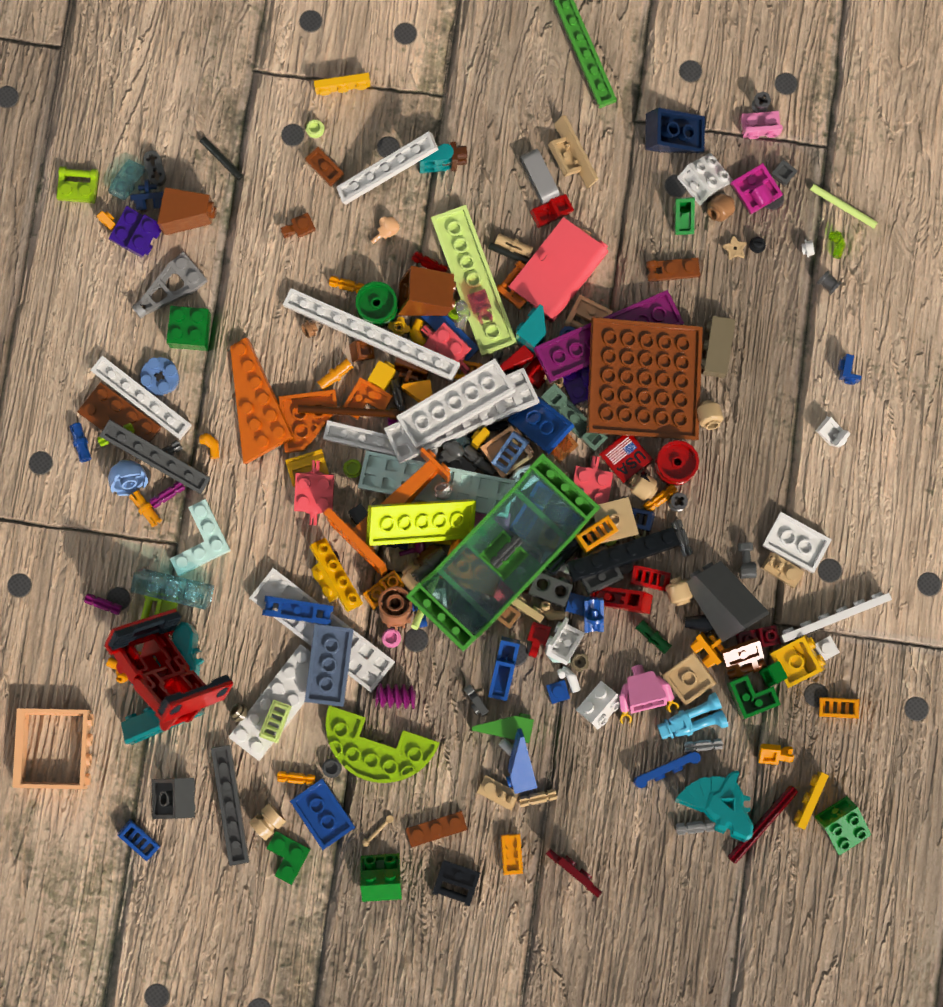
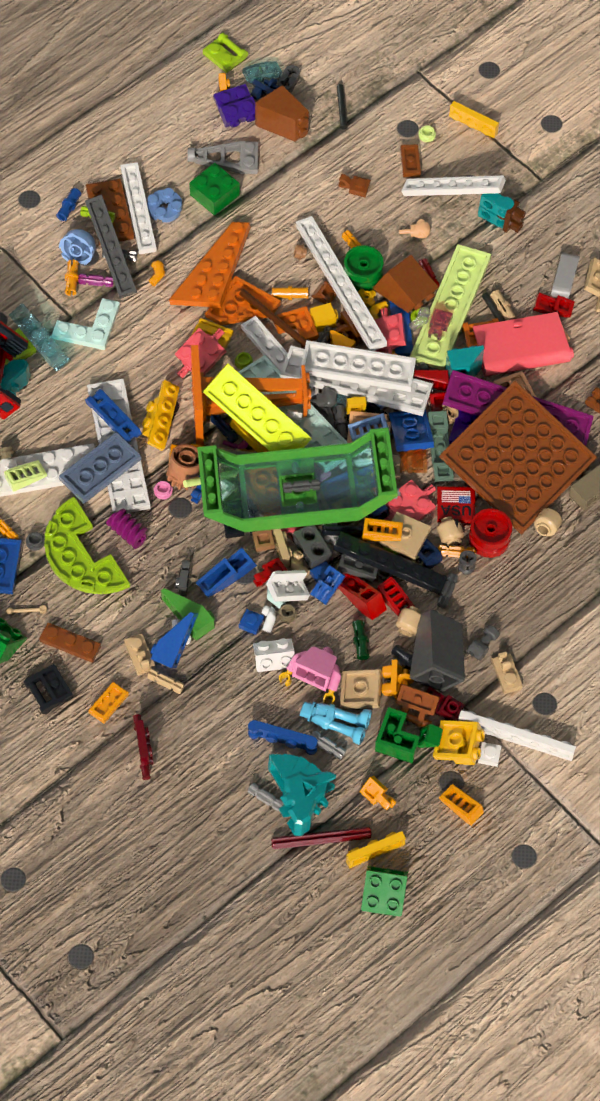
camera: 40 degrees right, 20 degrees down
(796, 542) = (535, 661): white plate -> none

